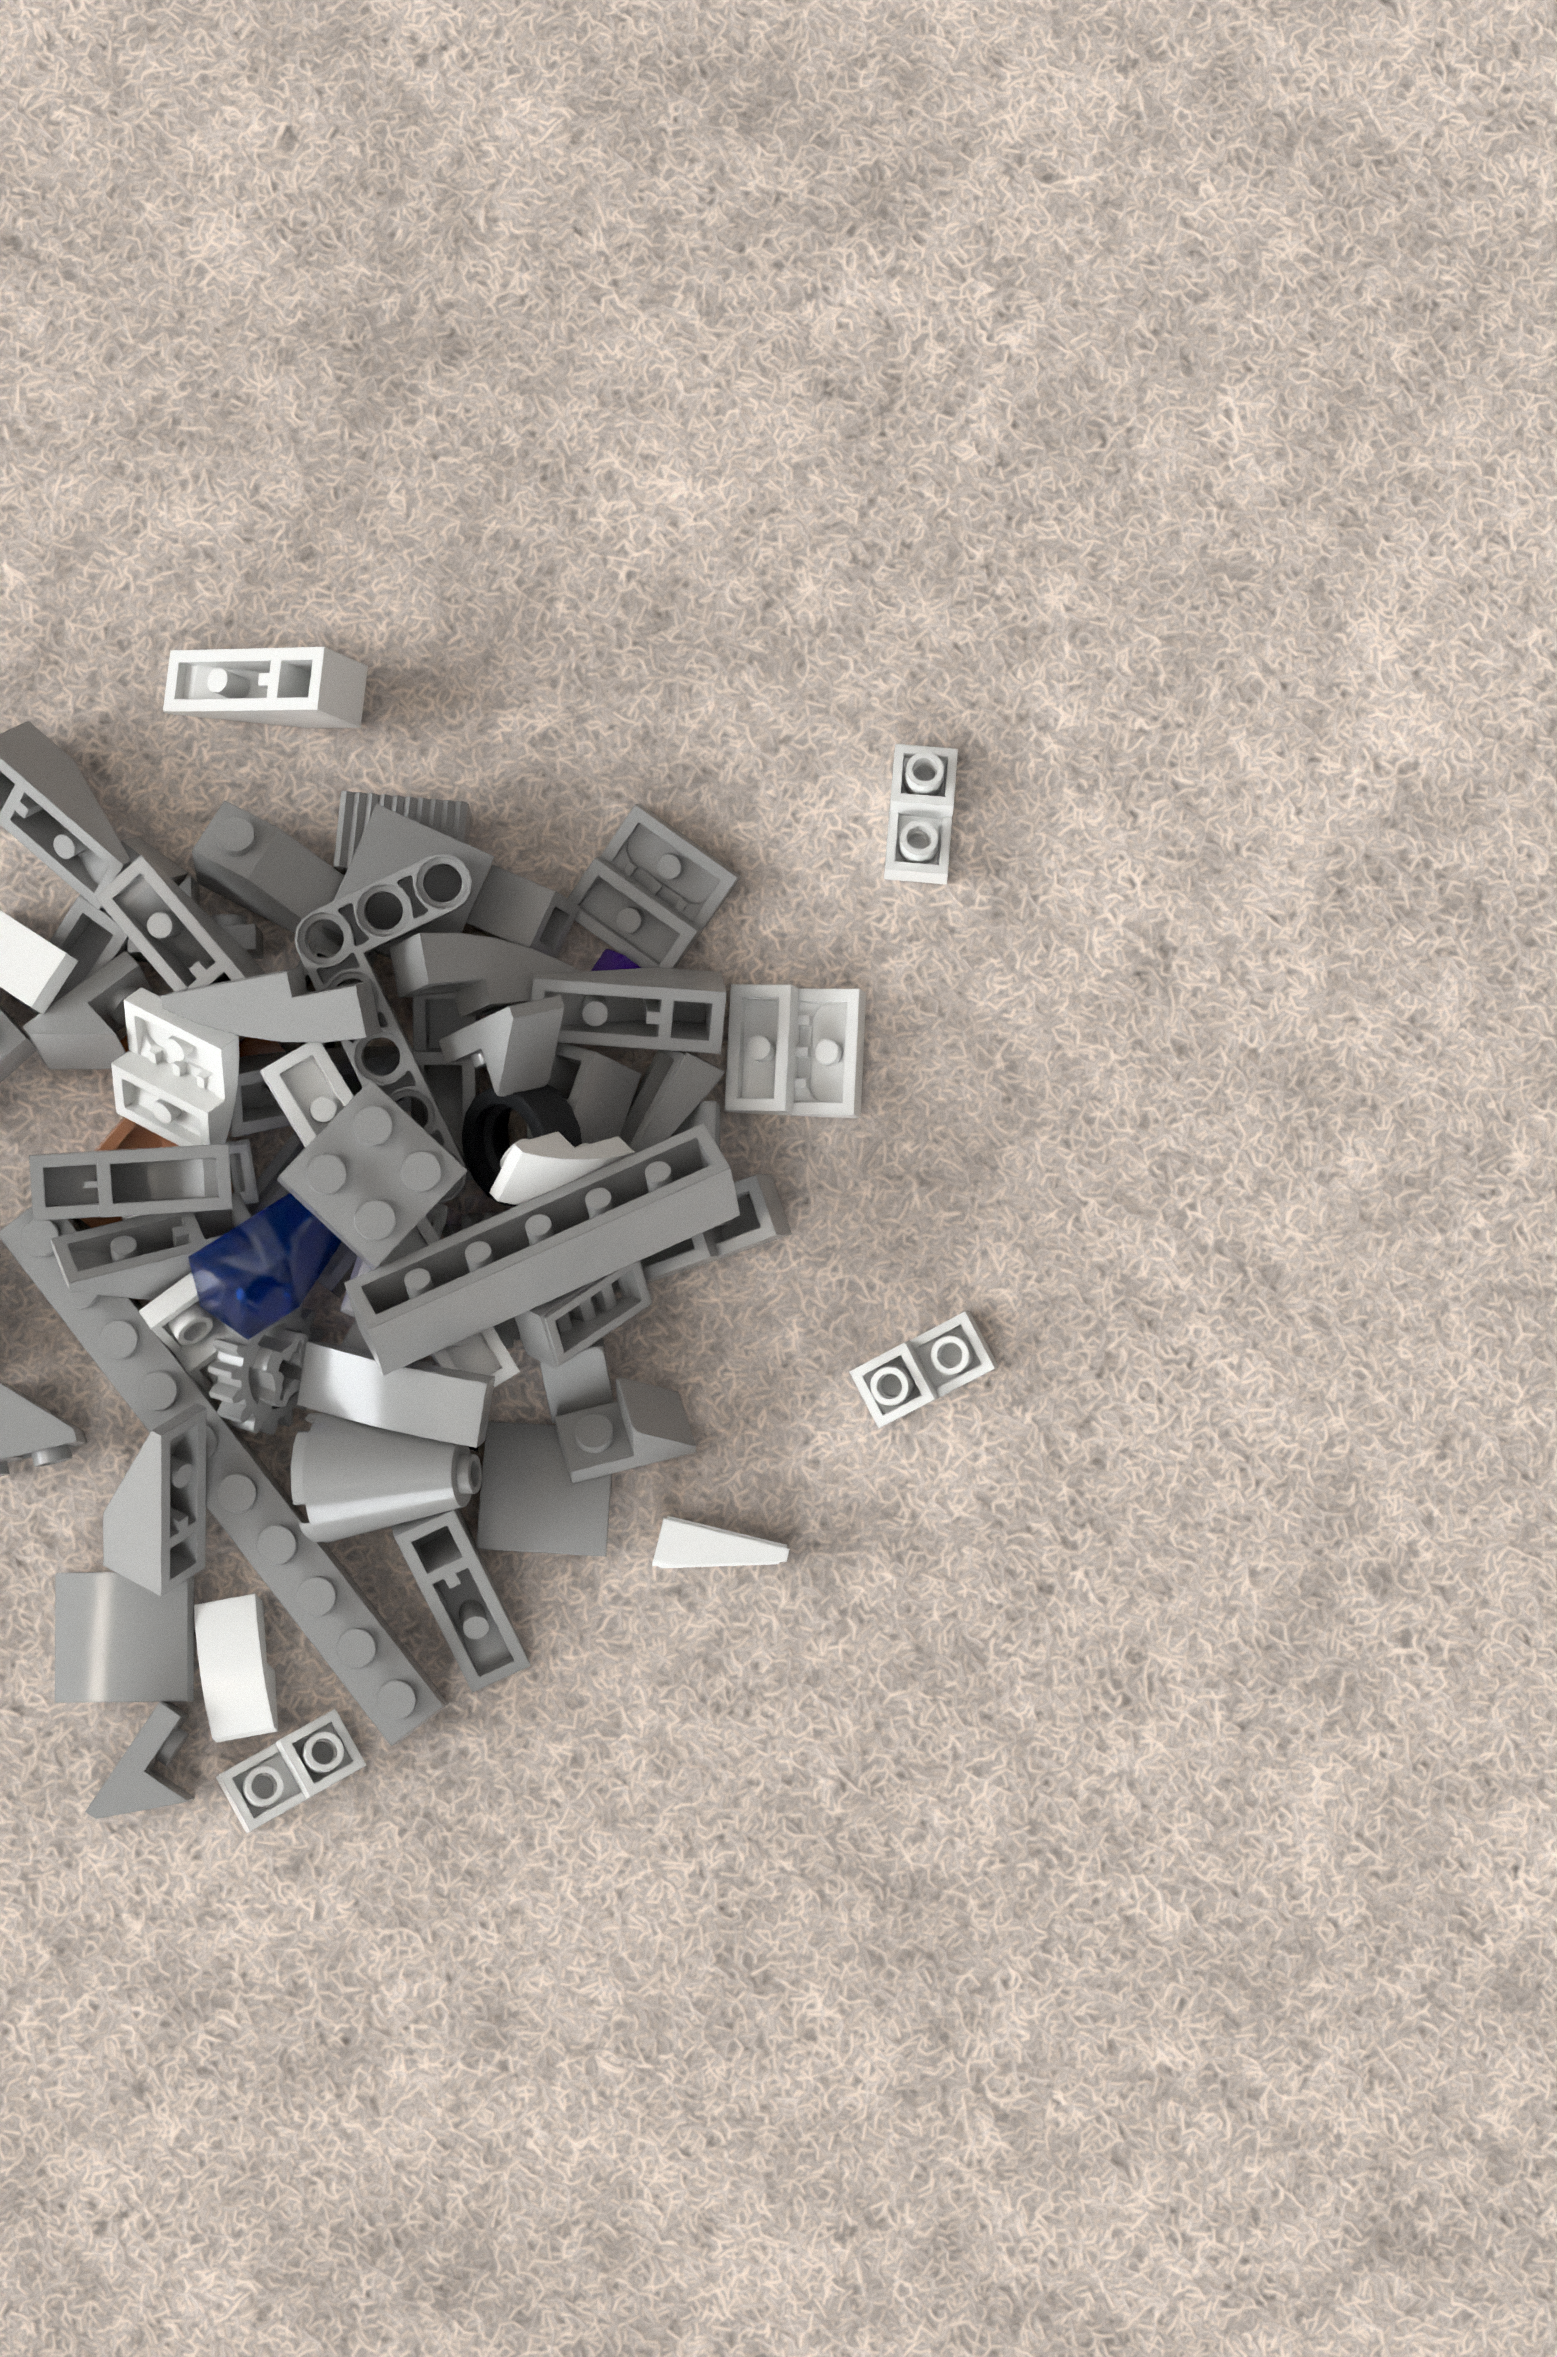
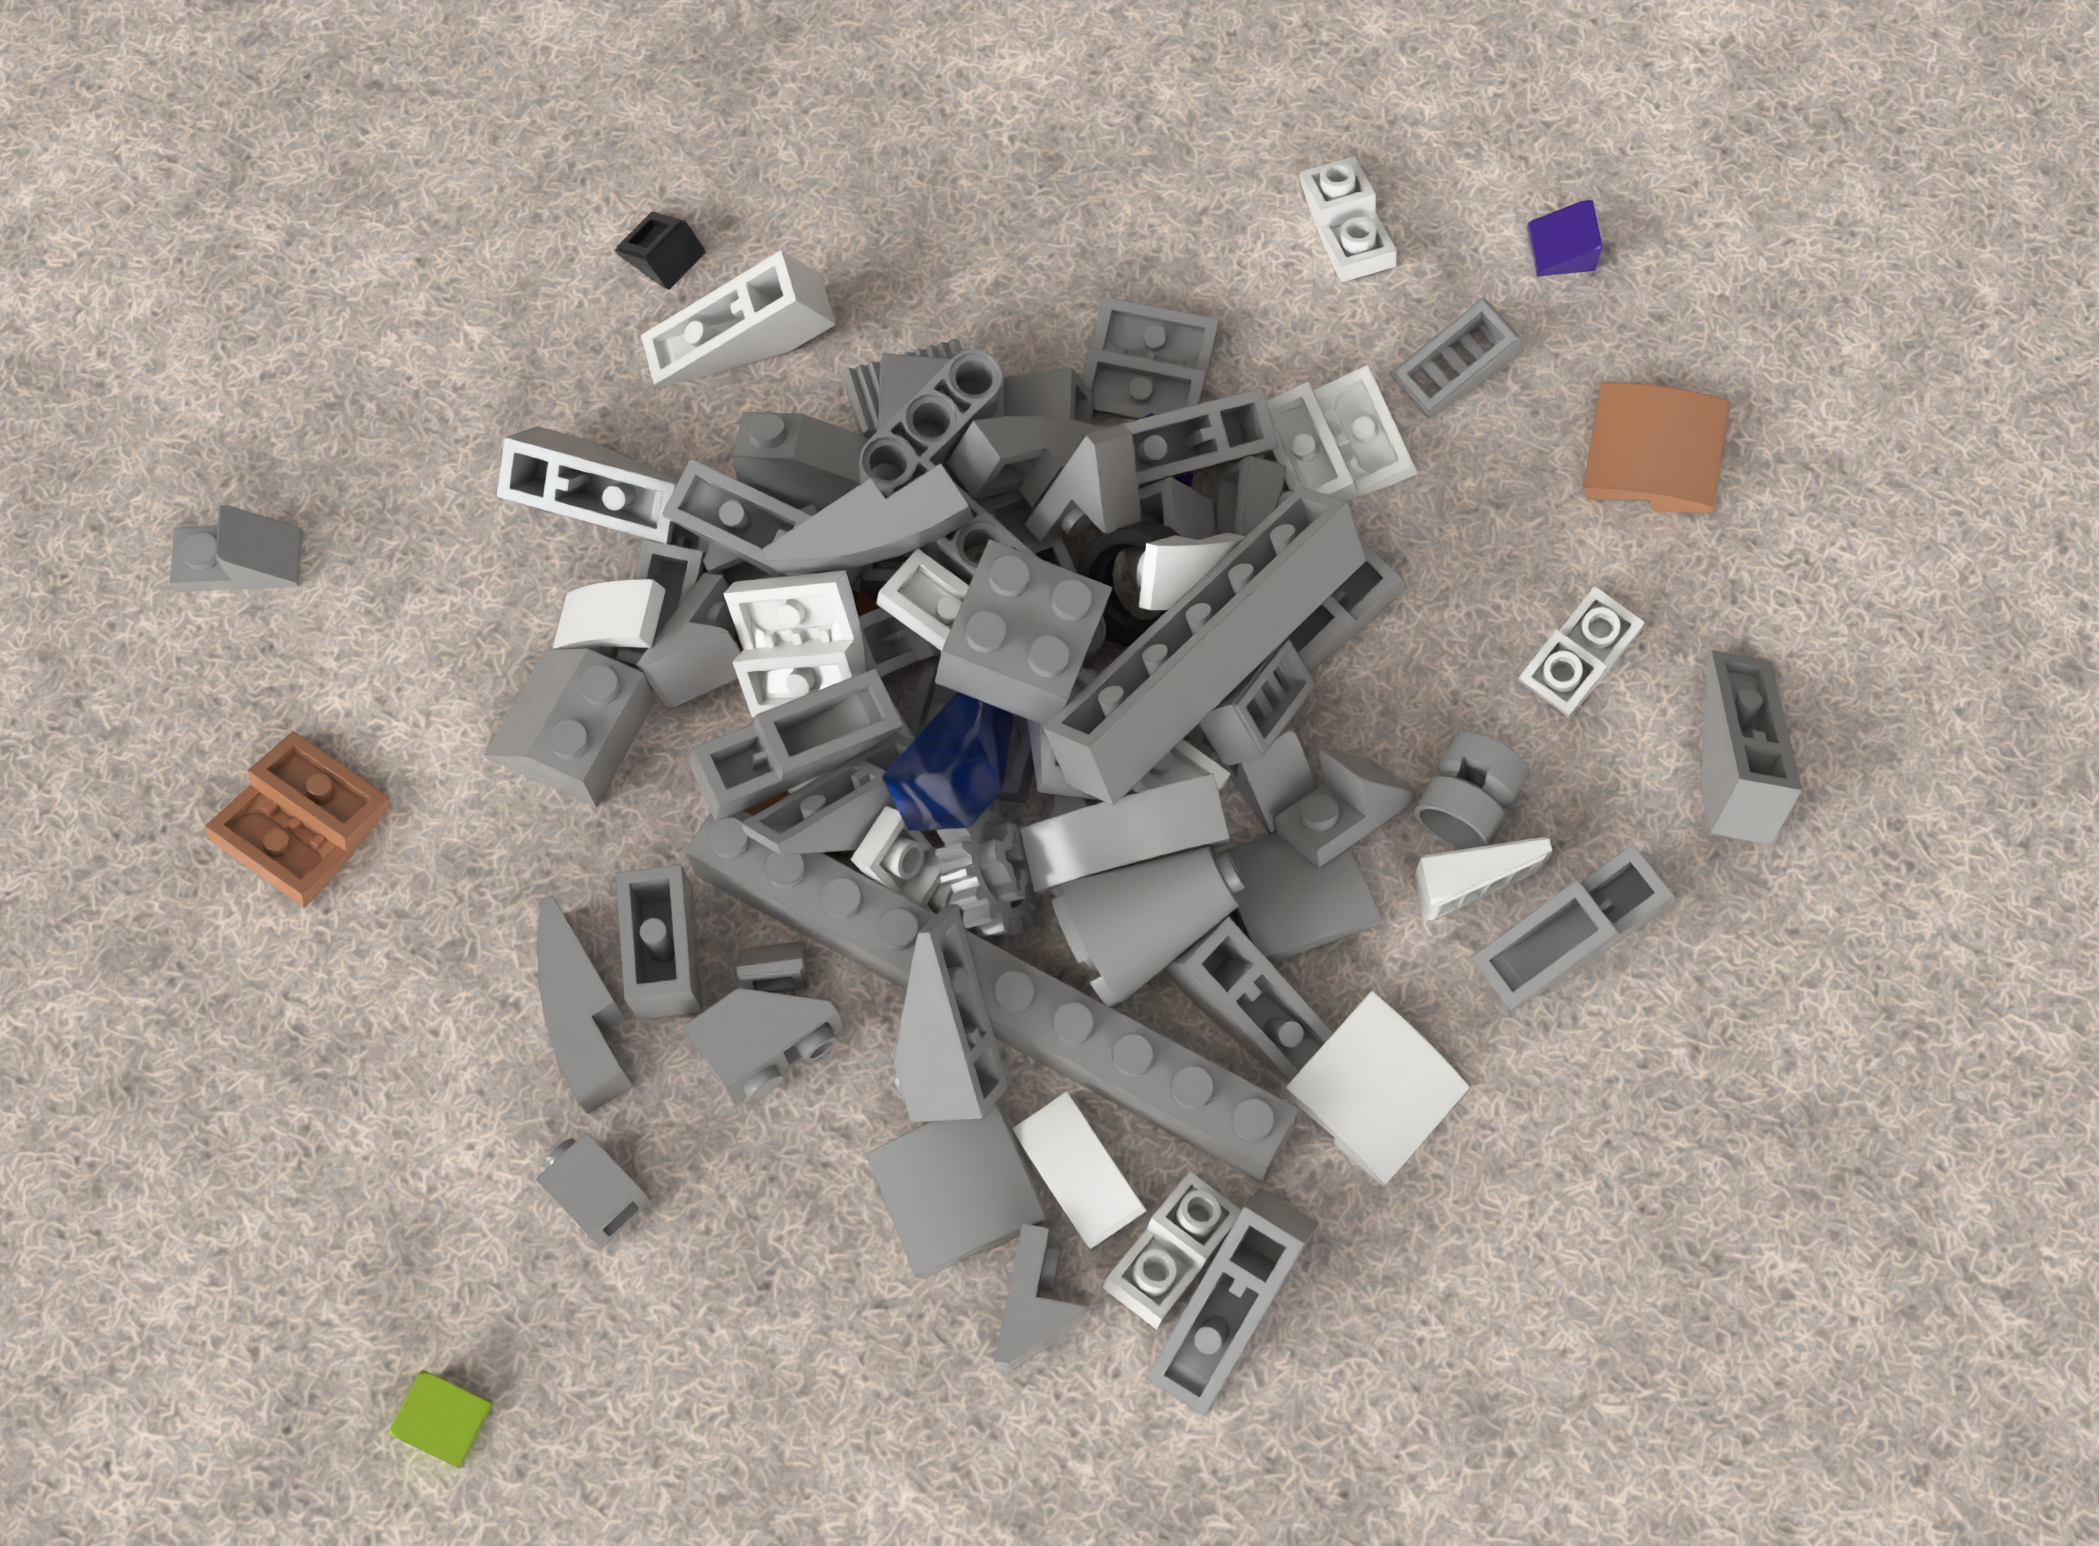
camera: 20 degrees left, 15 degrees down
(43, 1360) = (774, 967): none -> light grey slope
(227, 560) = (661, 248): none -> black slope
(320, 1838) = (1231, 1300): none -> light grey slope
(533, 1706) = (1377, 1088): none -> white slope
(726, 1481) = (1473, 787): none -> light grey wheel
(782, 1634) = (1574, 928): none -> light grey slope
(1007, 1001) = (1480, 317): none -> light grey slope
(1024, 1529) = (1747, 751): none -> light grey slope
(1100, 1191) = (1657, 447): none -> nougat slope
(1122, 929) = (1566, 240): none -> dark purple slope

